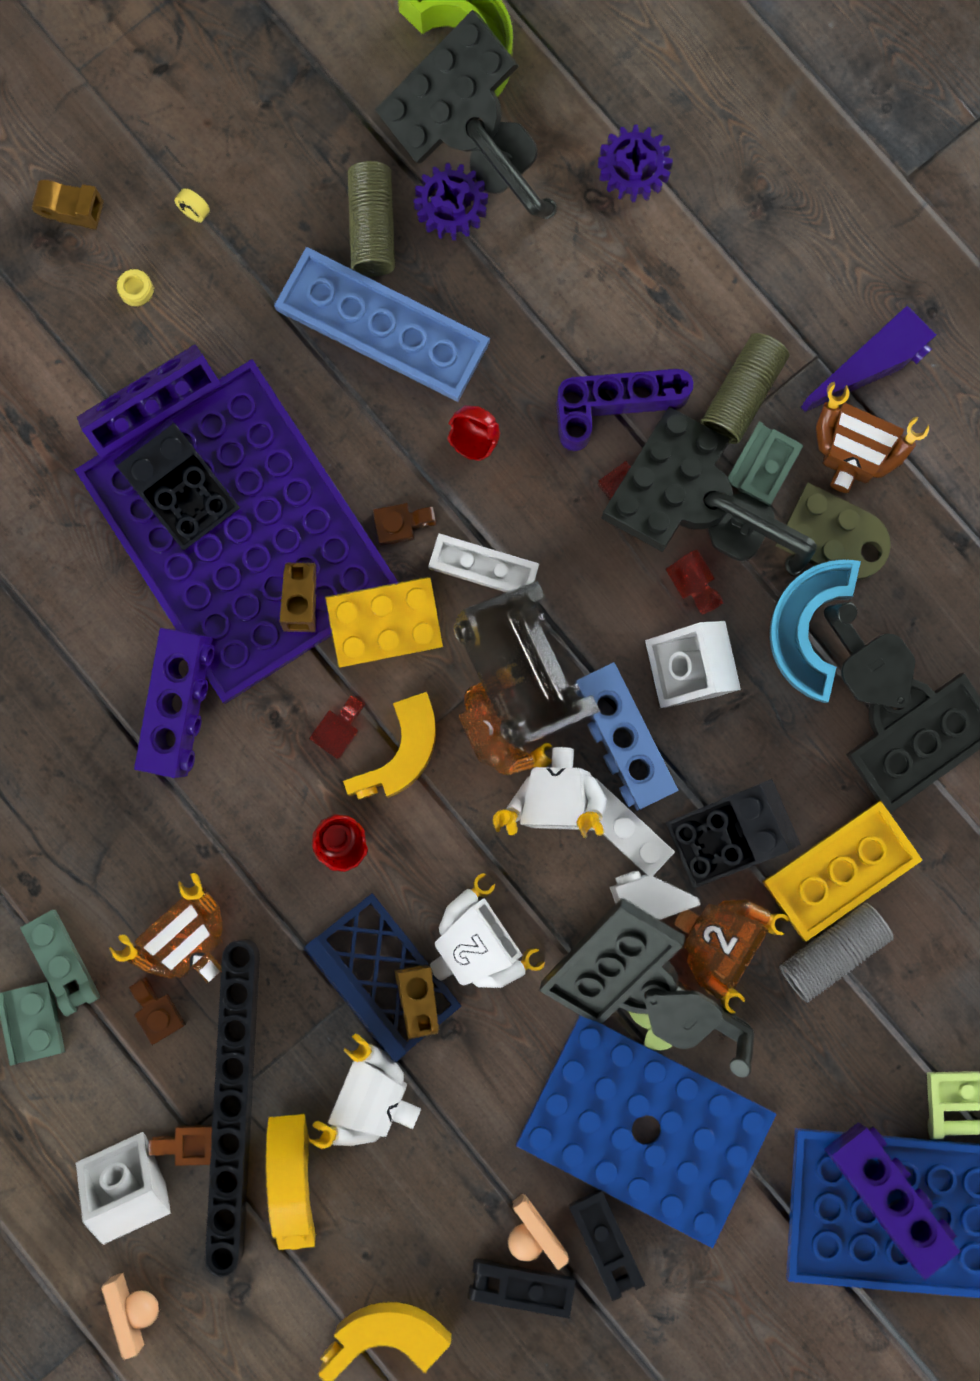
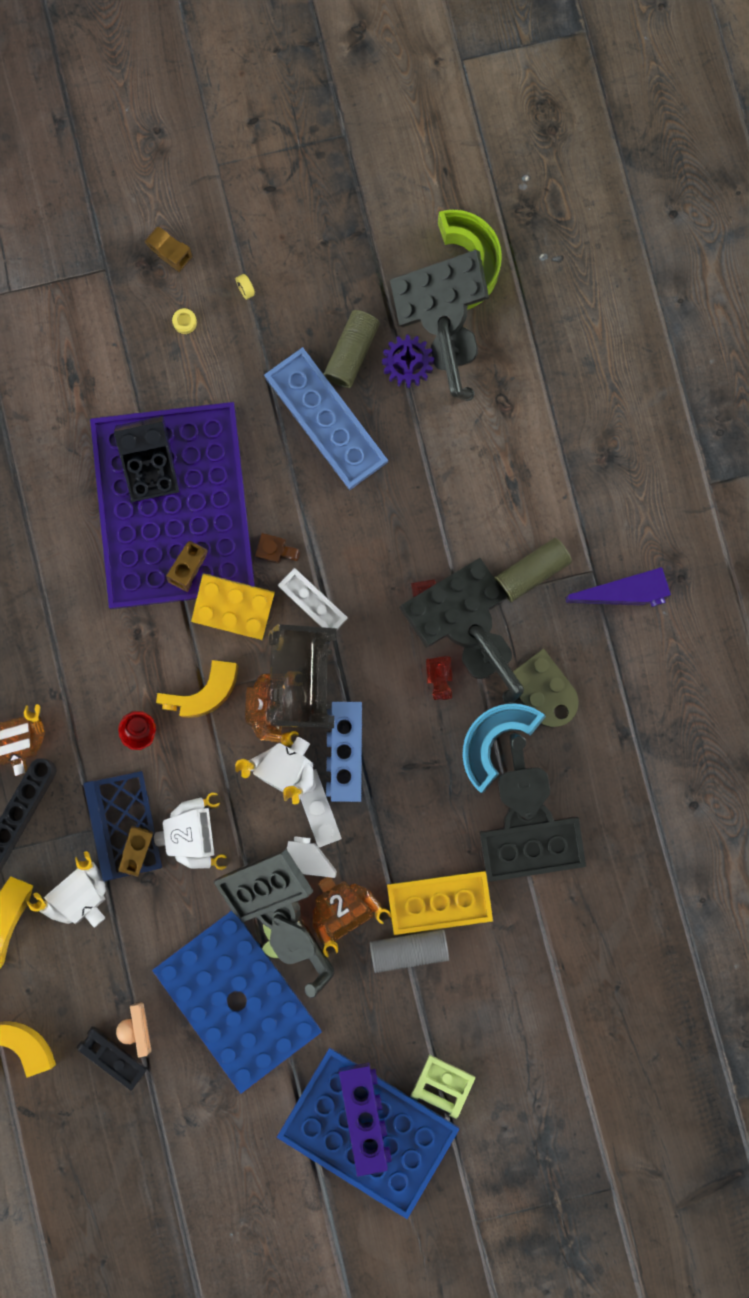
camera: 30 degrees right, 0 degrees up
(148, 400) = (156, 397): dark purple brick -> none
(159, 716) = (80, 578): dark purple brick -> none
(335, 731) = (170, 660): clear red plate -> none
(473, 432) = (348, 515): red hair -> none
(606, 1243) = (177, 1058): black plate -> none
(619, 167) = (529, 387): dark purple gear -> none
(625, 401) = (452, 541): dark purple beam -> none
(692, 664) = (412, 727): white slope -> none
(733, 833) = (383, 845): black slope -> none
(764, 463) = (521, 623): sand green plate -> none
(860, 443) = (588, 639): dark orange torso -> none

